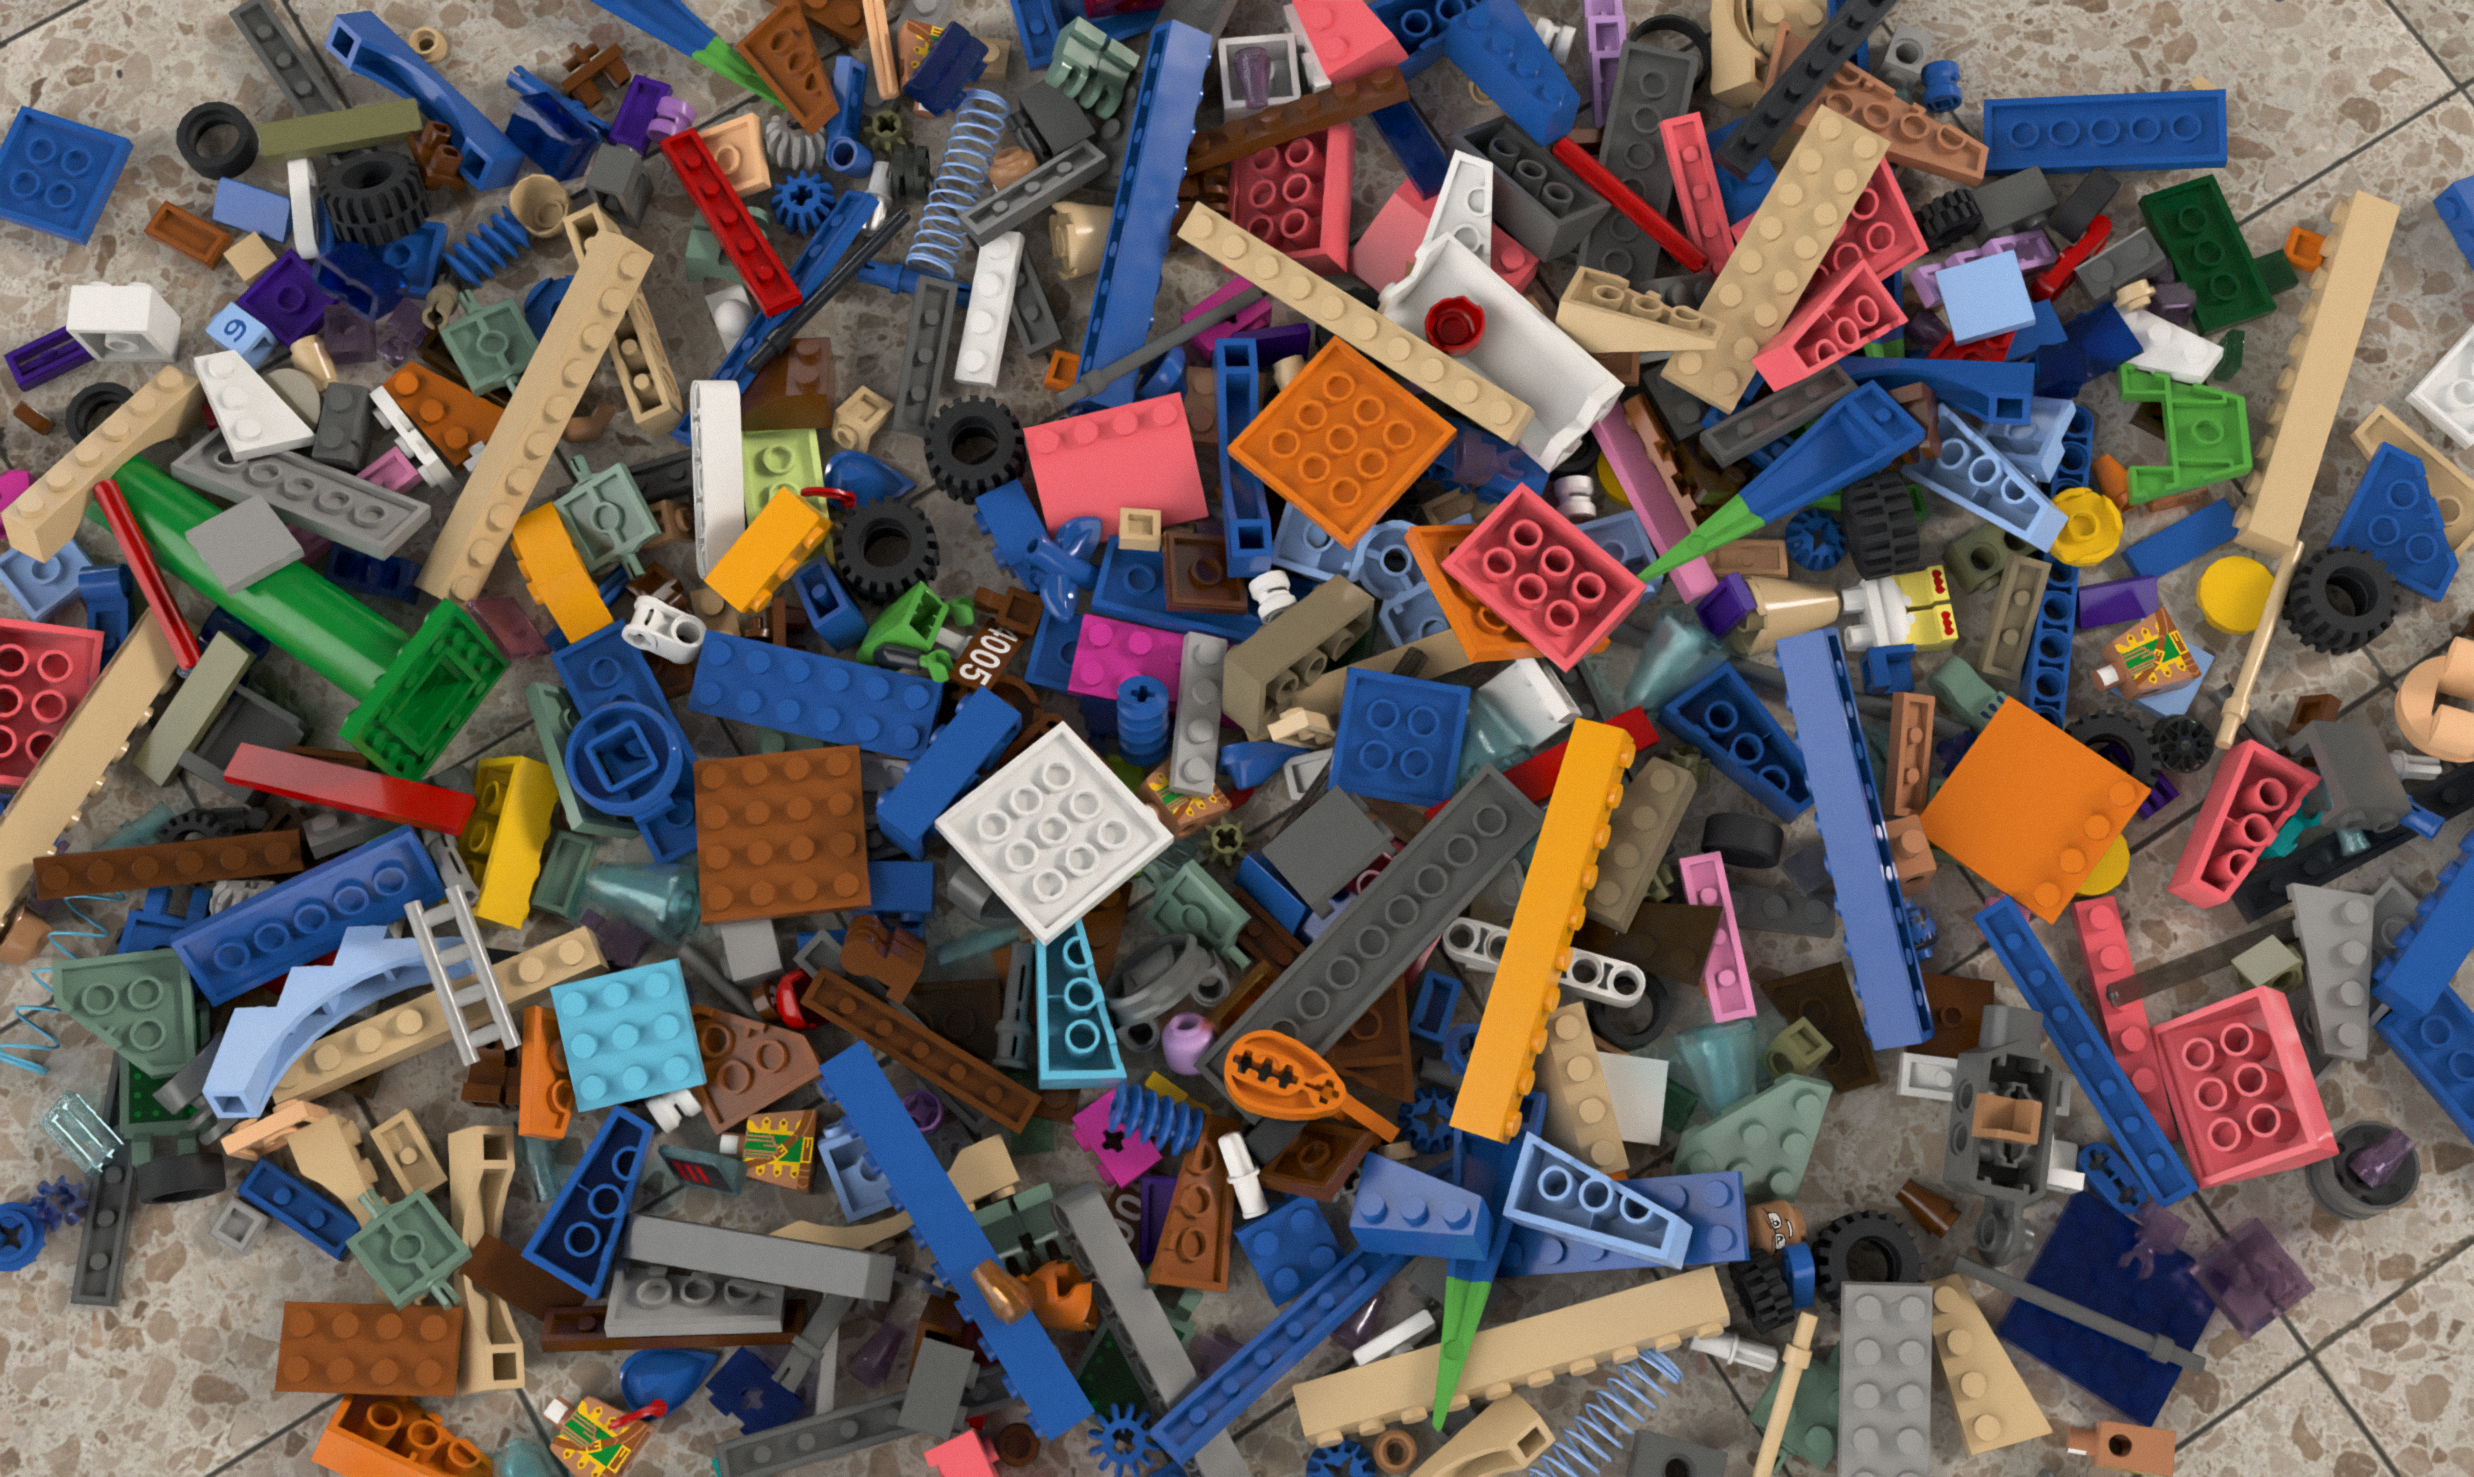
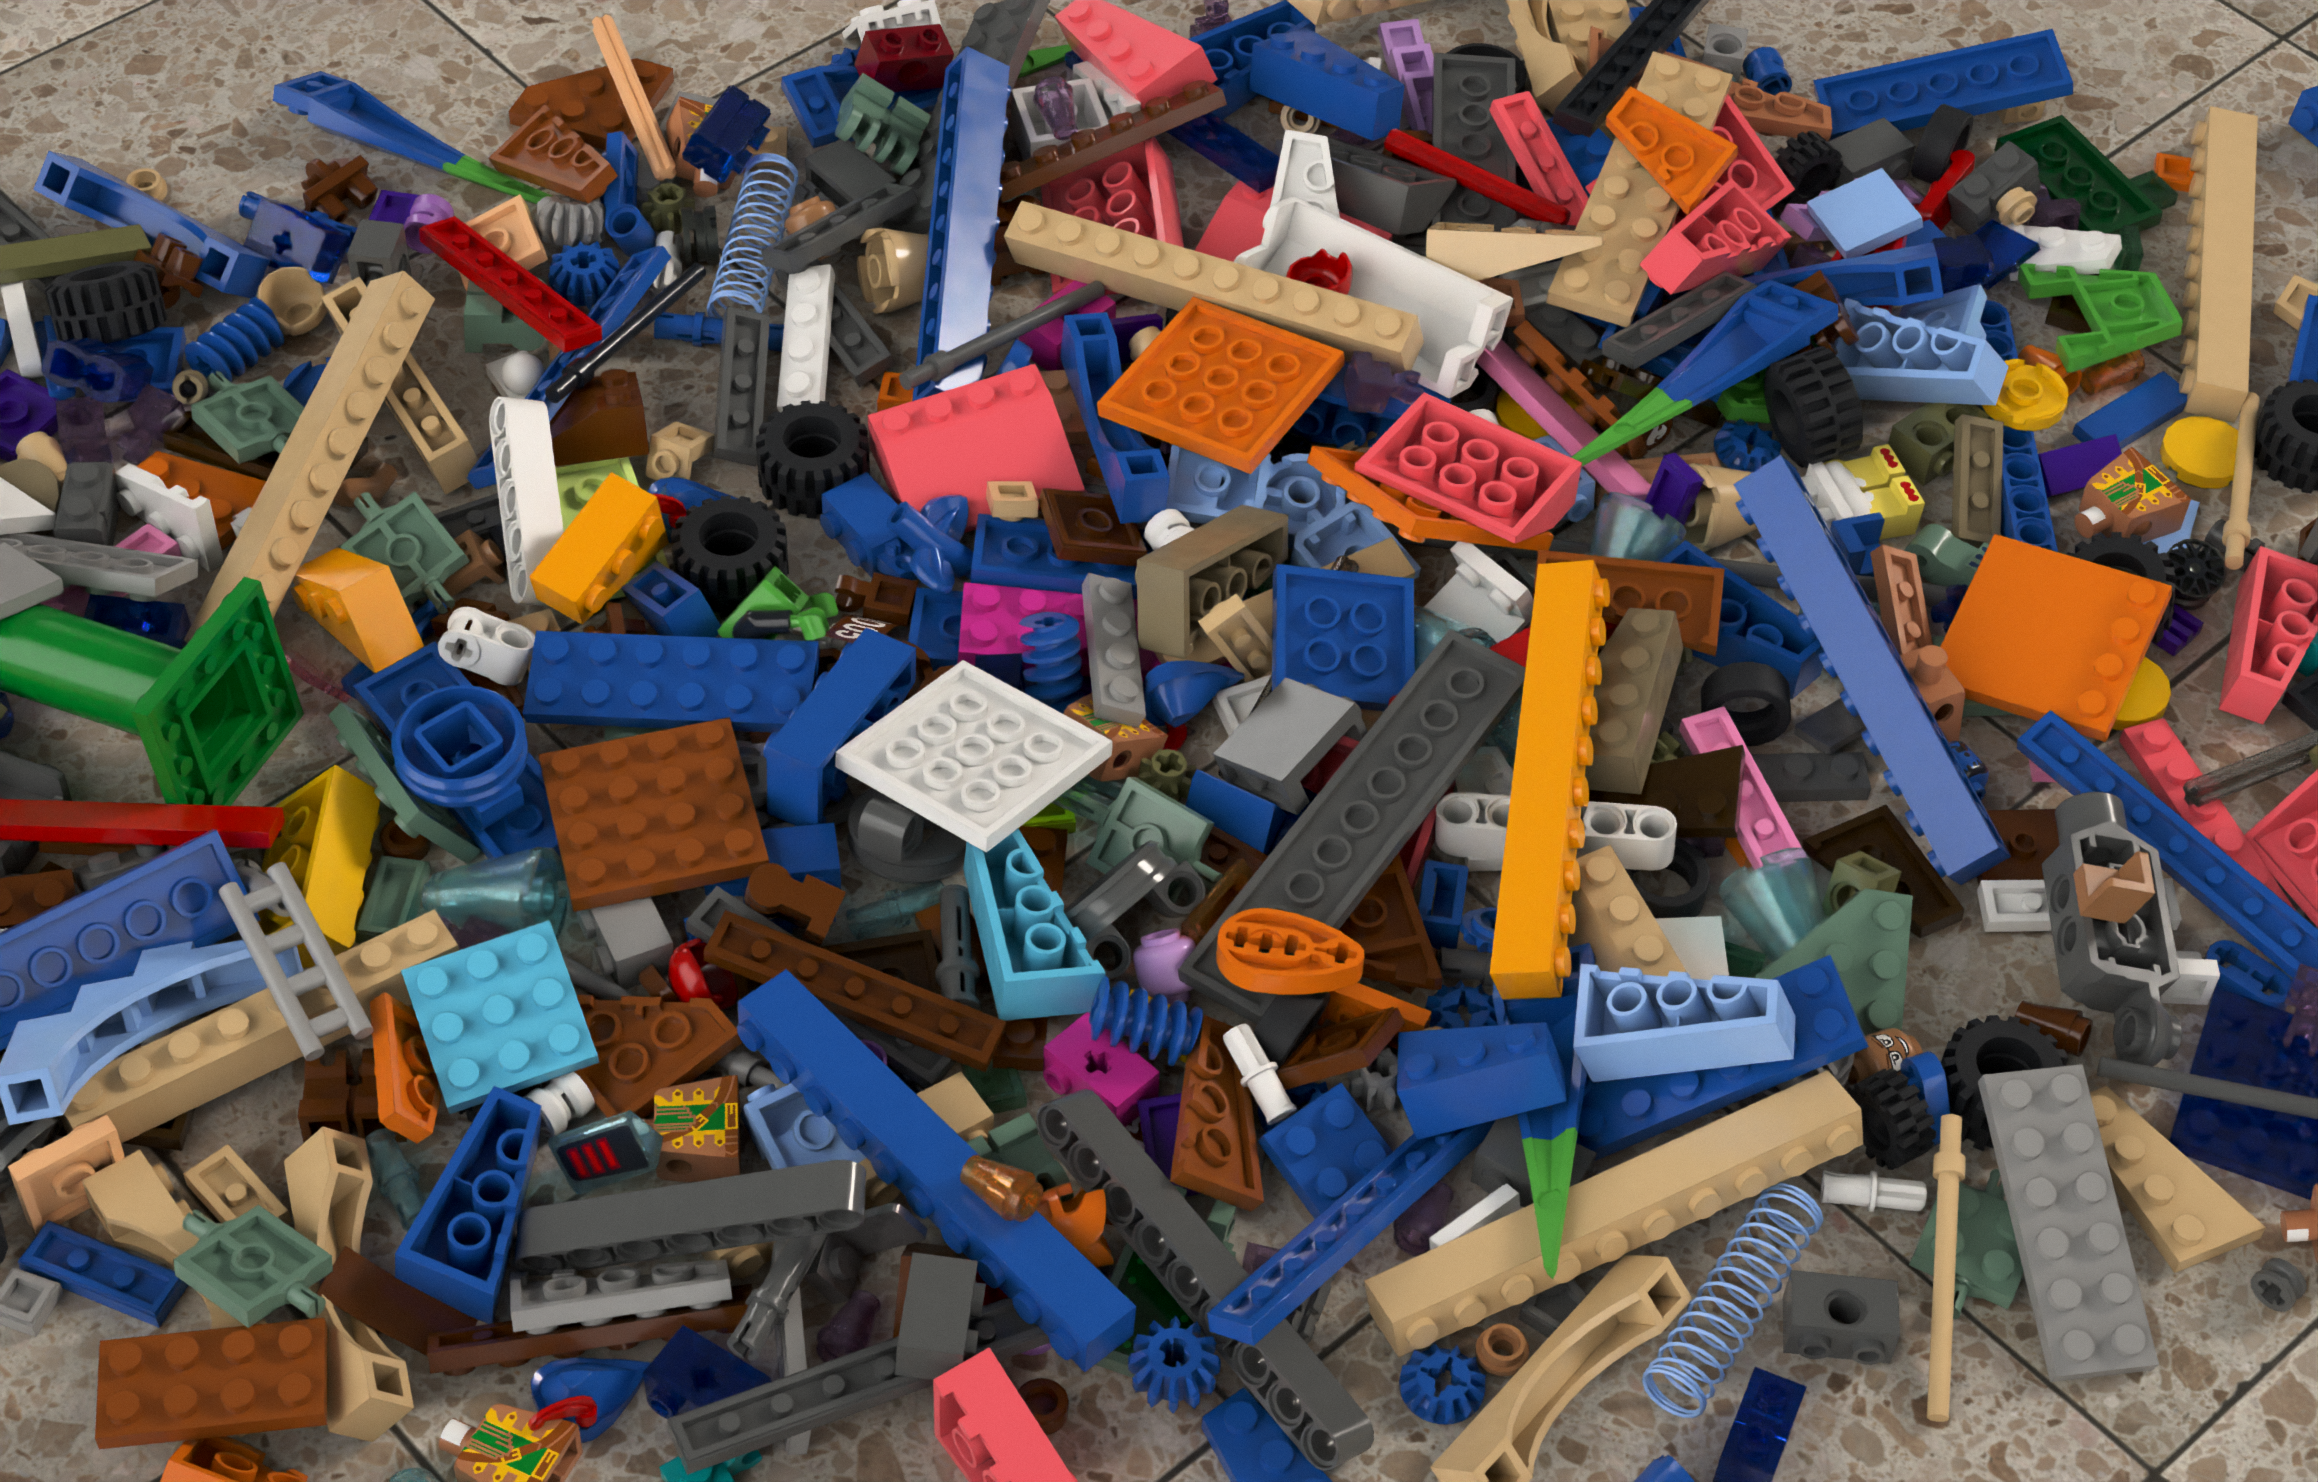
camera: 10 degrees left, 25 degrees down
(1669, 725) = (1643, 584): none -> dark orange wing
(1809, 232) = (1671, 147): none -> orange wing

